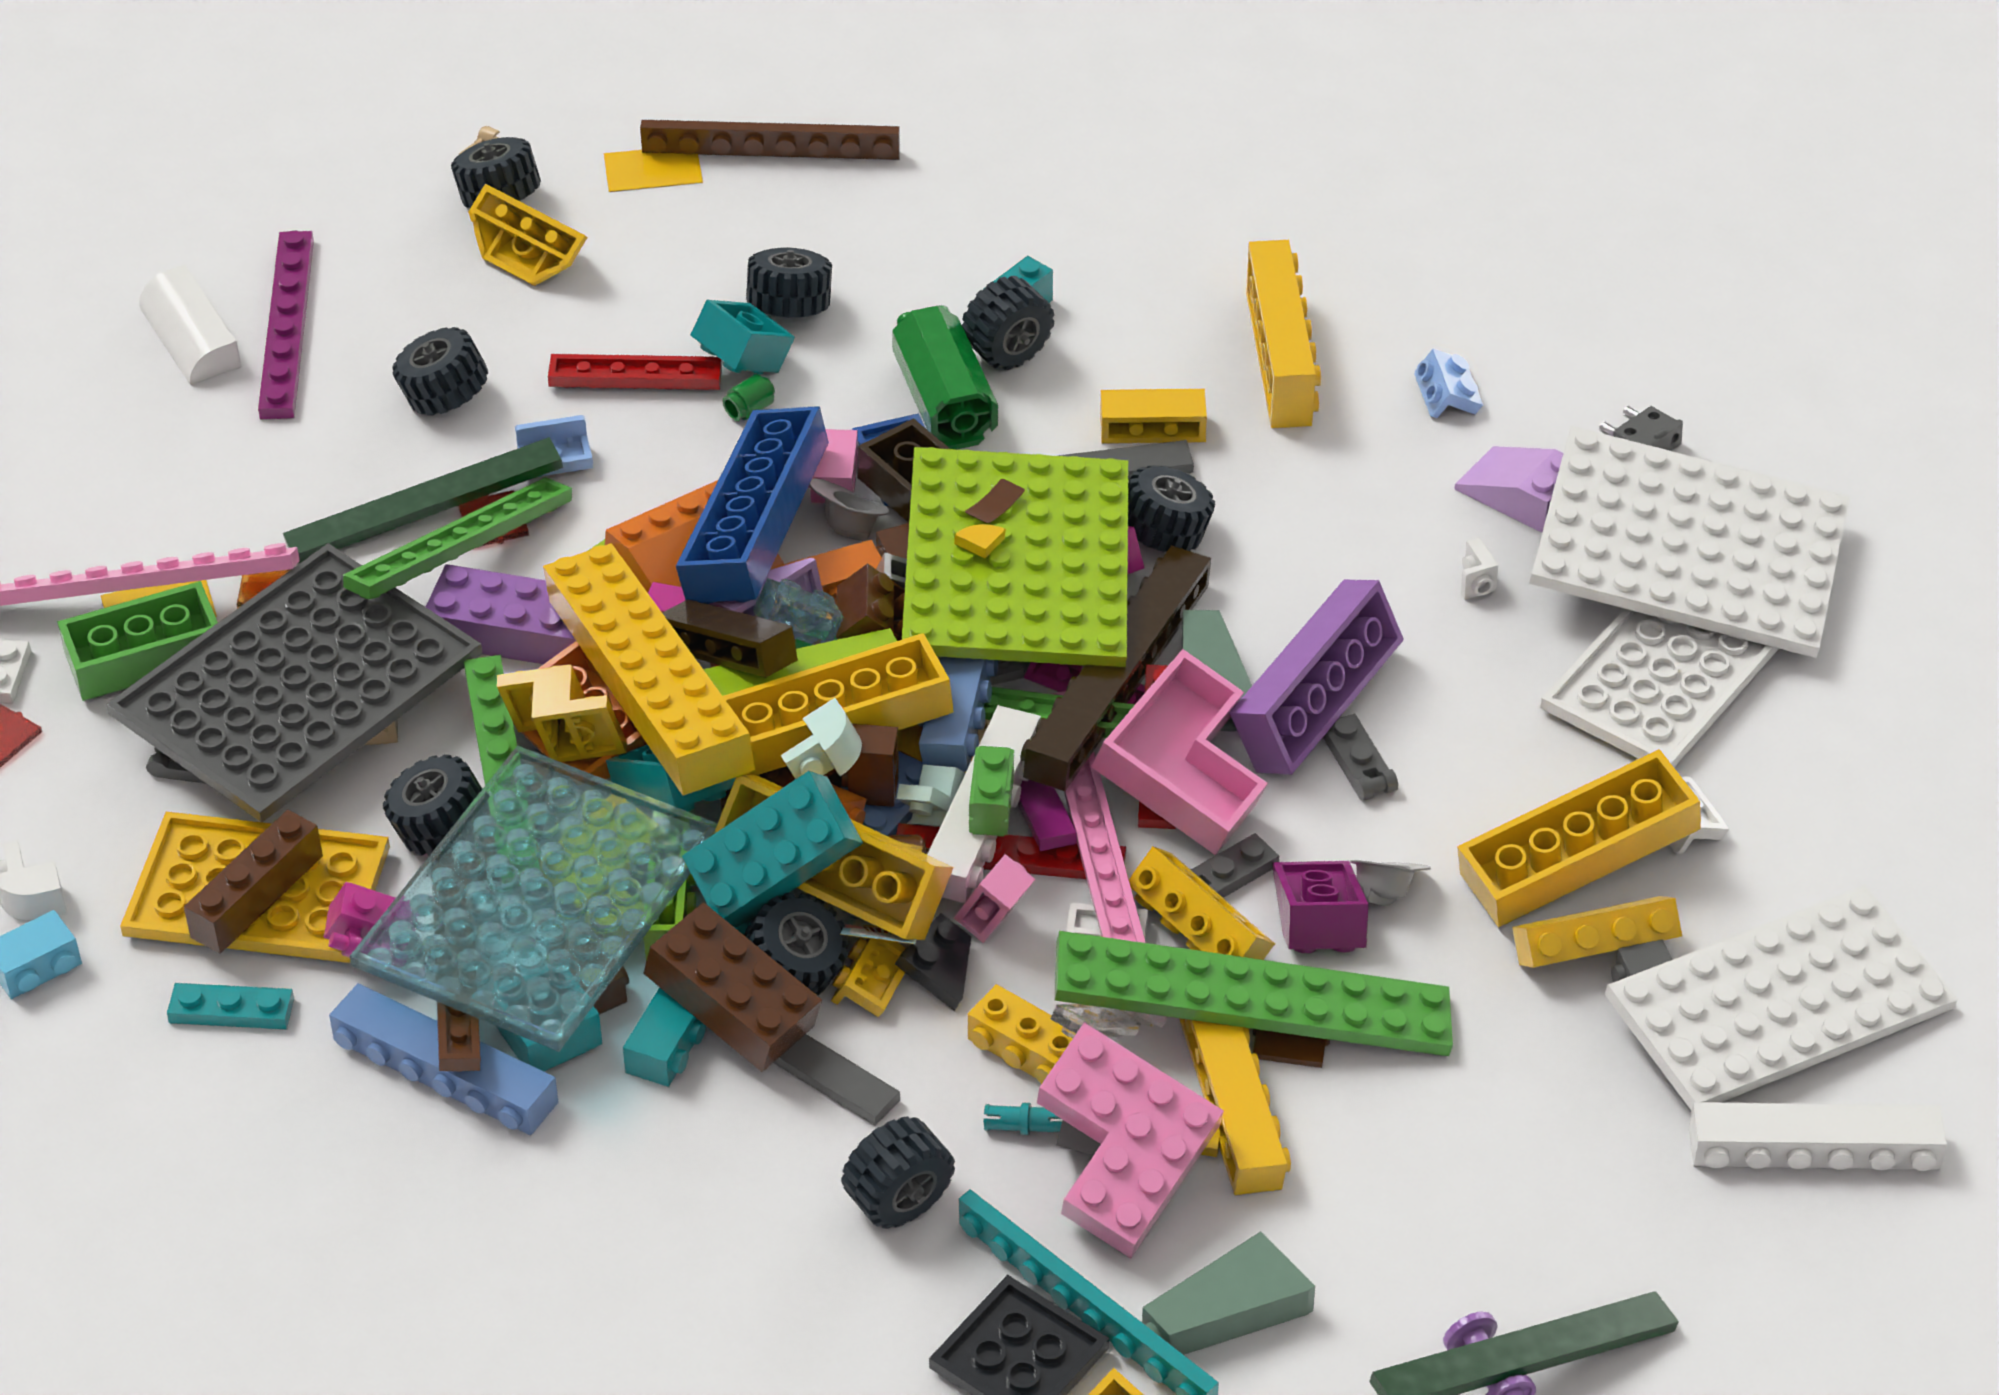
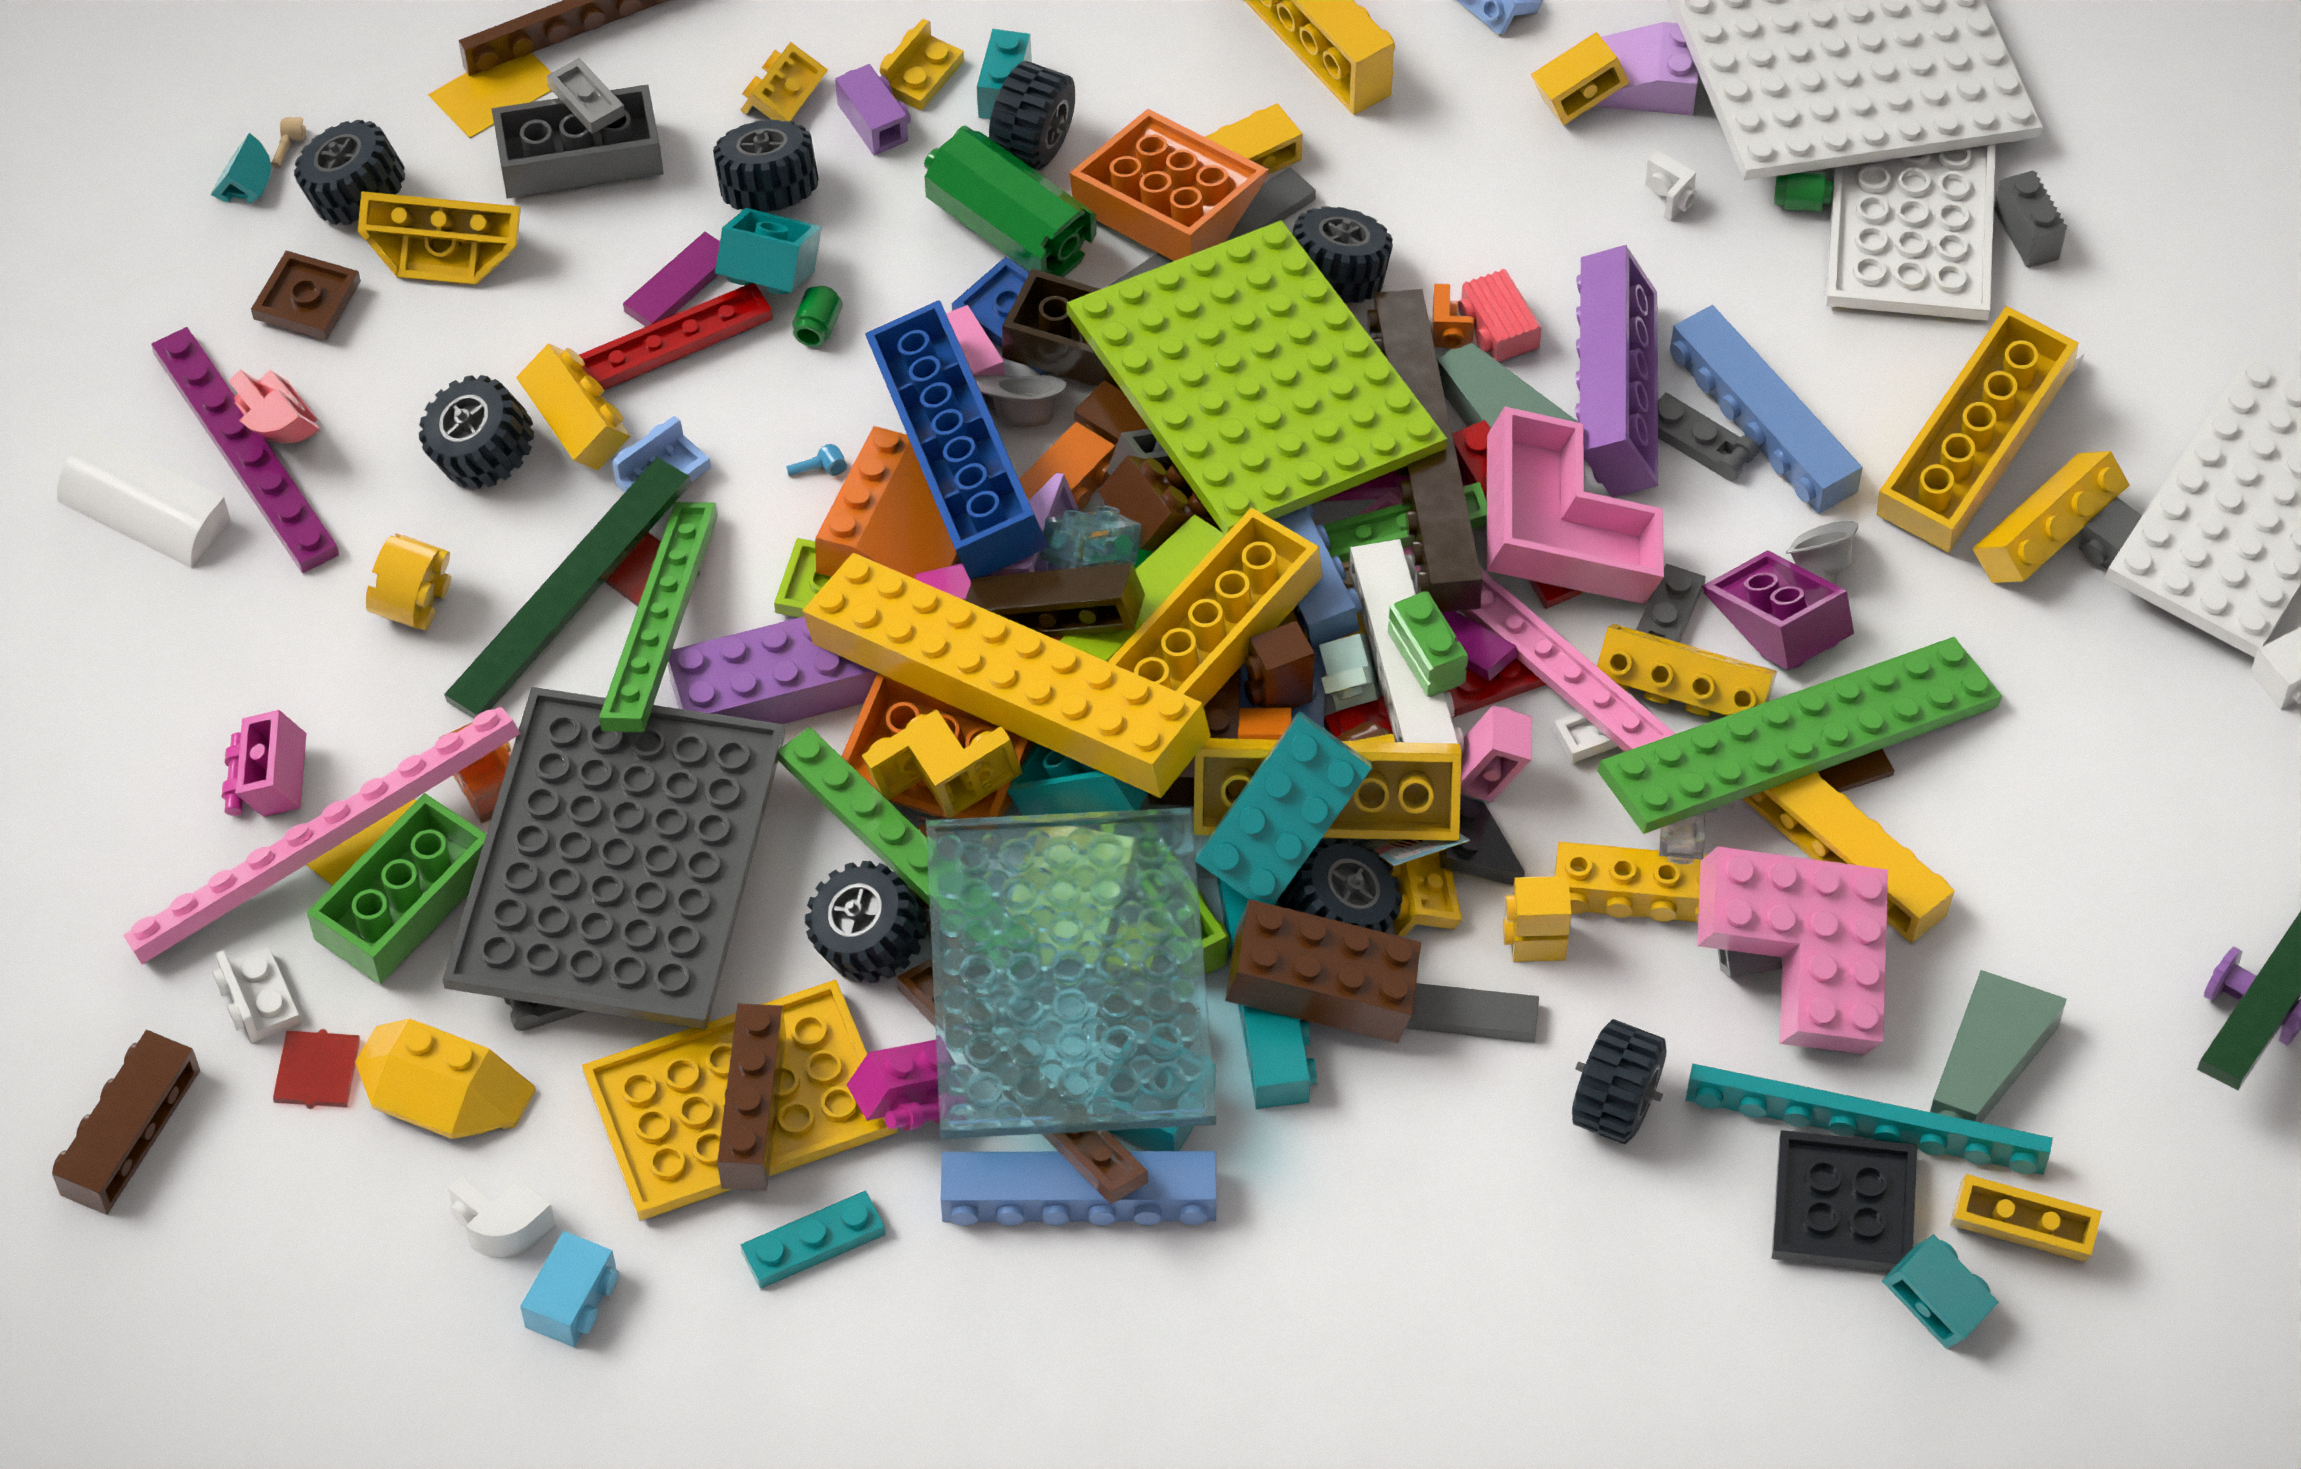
camera: 30 degrees left, 10 degrees up
(66, 782) = (440, 1080): none -> yellow wedge
(123, 523) = (265, 765): none -> dark pink brick
(312, 446) = (408, 581): none -> yellow brick
(318, 301) = (273, 408): none -> coral brick
(407, 243) = (306, 295): none -> reddish brown plate
(432, 149) = (245, 173): none -> teal brick
(523, 382) = (574, 406): none -> yellow brick
(661, 340) = (675, 282): none -> magenta tile
(671, 216) = (551, 149): none -> dark grey brick
(679, 490) = (828, 457): none -> dark azure hand
(688, 181) = (585, 95): none -> light grey plate
(831, 746) = (1254, 670): light aqua brick -> none
(853, 240) = (786, 85): none -> yellow bracket
(903, 278) = (872, 109): none -> medium lavender brick
(935, 1031) = (1538, 919): none -> yellow piece
(963, 265) = (920, 66): none -> yellow bracket
(980, 538) = (1221, 377): yellow tile -> none
(996, 502) = (1199, 327): reddish brown sticker -> none
(1021, 1118) = (1672, 966): teal pin -> none
(1070, 407) = (1167, 186): none -> orange slope
(1219, 590) = (1447, 327): none -> orange bracket
(1264, 605) = (1500, 315): none -> coral brick
(1425, 758) = (1765, 409): none -> medium blue brick
(1459, 464) = (1580, 78): none -> yellow brick
(1583, 616) = (1803, 191): none -> green brick
(1759, 712) = (2030, 218): none -> dark grey brick

